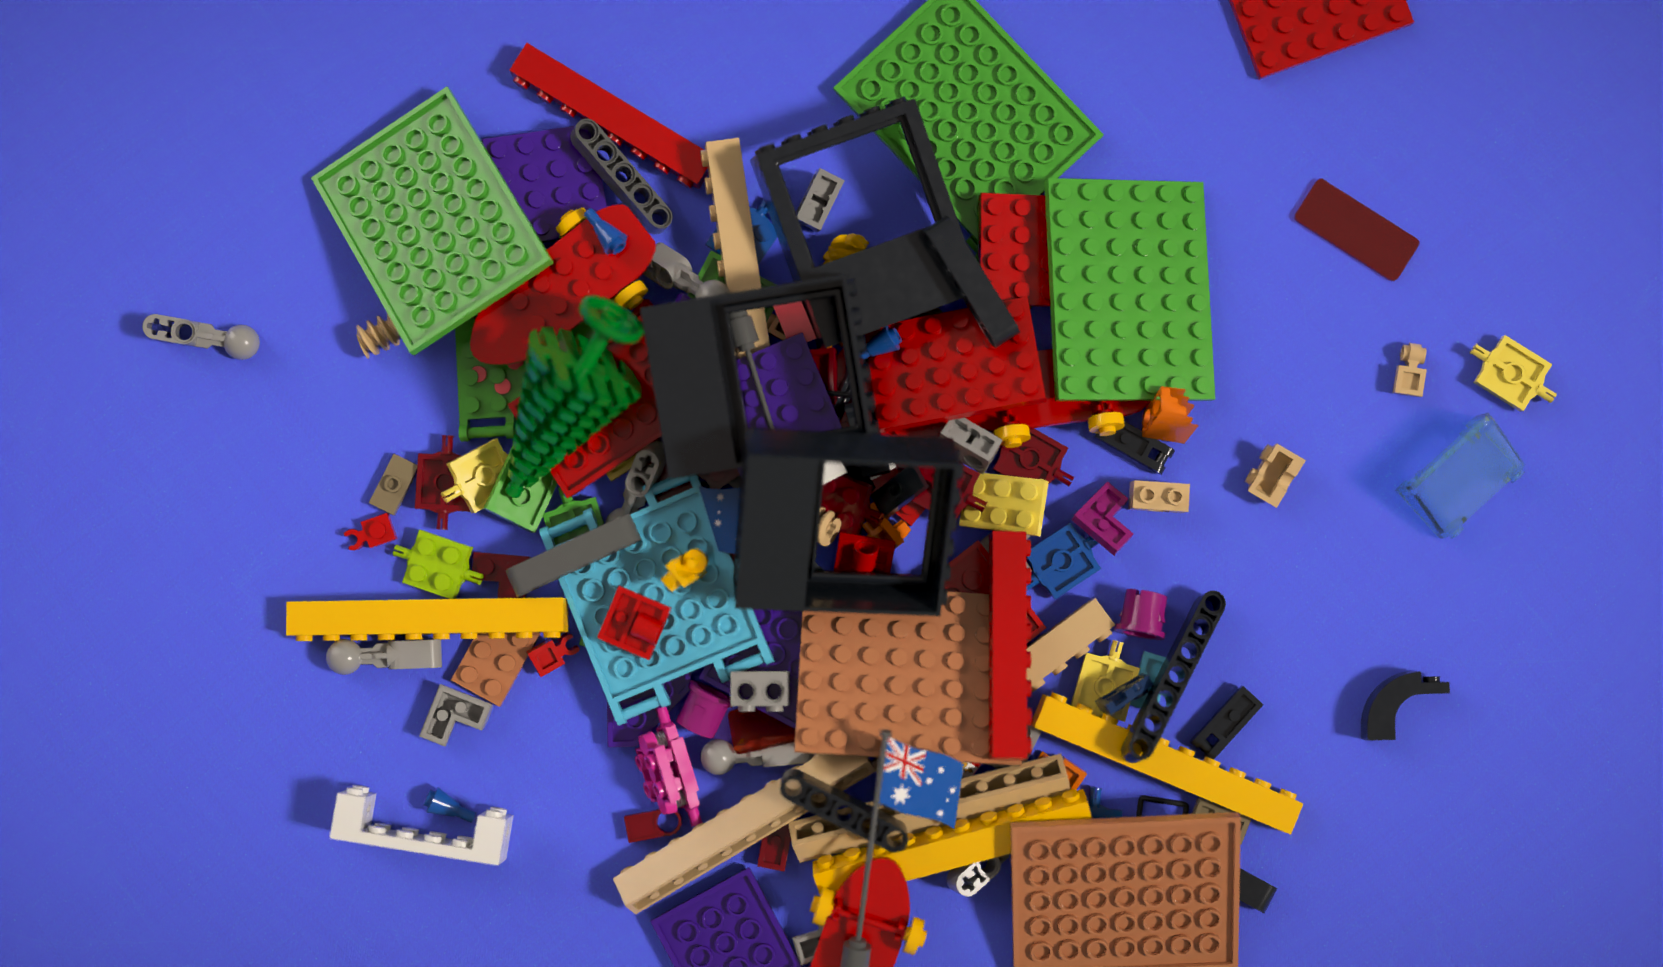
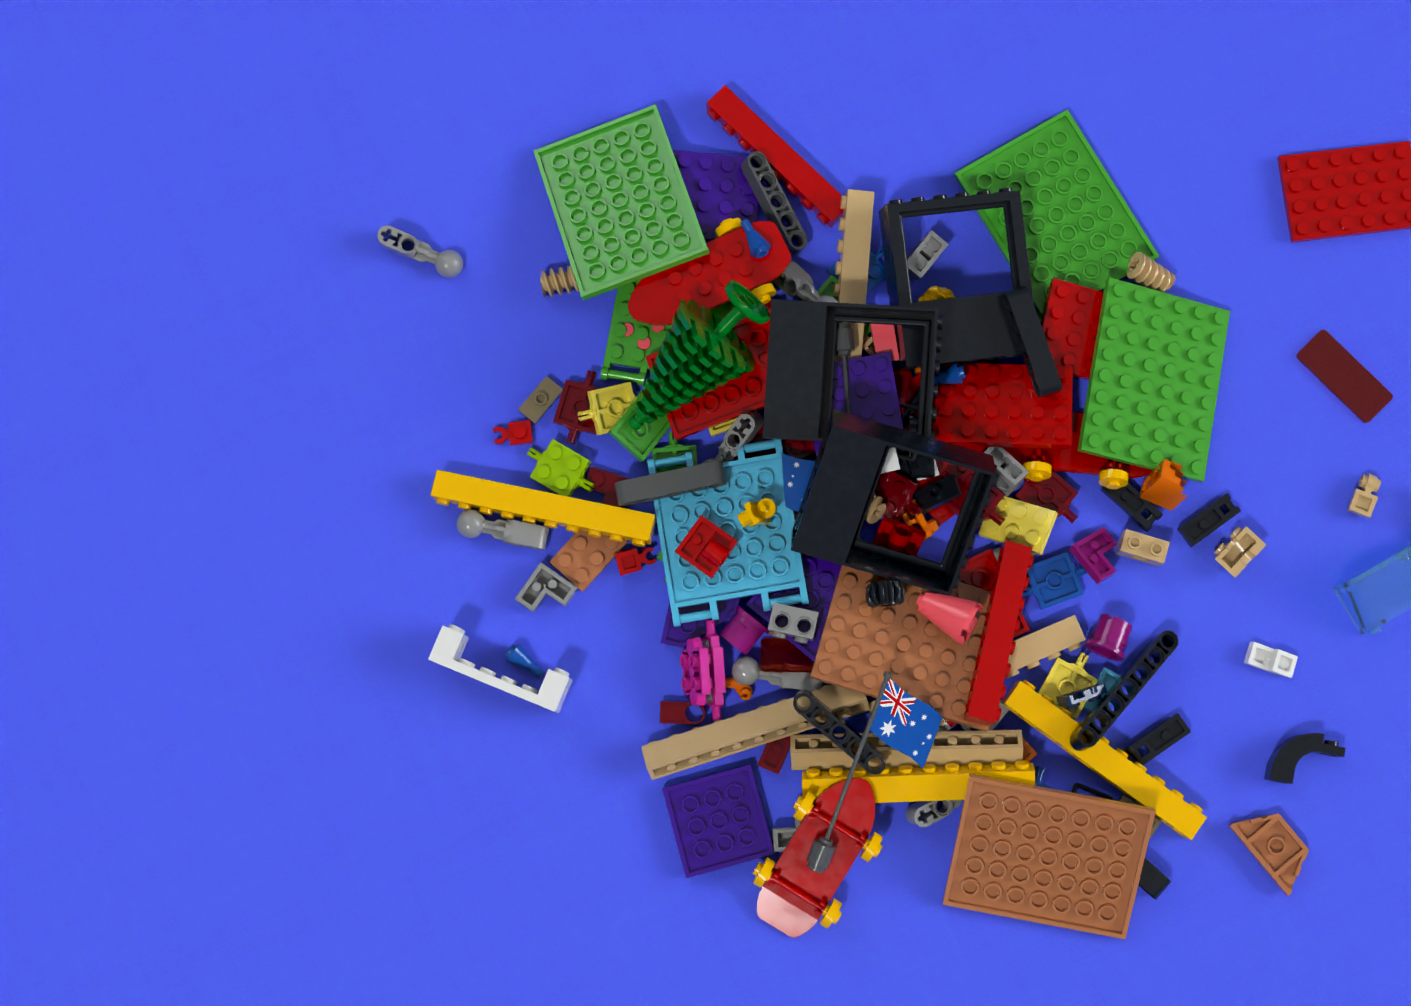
camera: 20 degrees right, 5 degrees down
(722, 781) = (744, 692): none -> orange arm
(861, 632) = (885, 593): none -> black gear
(945, 637) = (950, 614): none -> coral cone
(1096, 160) = (1149, 273): none -> tan piece
(1231, 444) = (1208, 520): none -> black plate
(1339, 594) = (1270, 659): none -> white slope
(1389, 818) = (1274, 847): none -> nougat wing

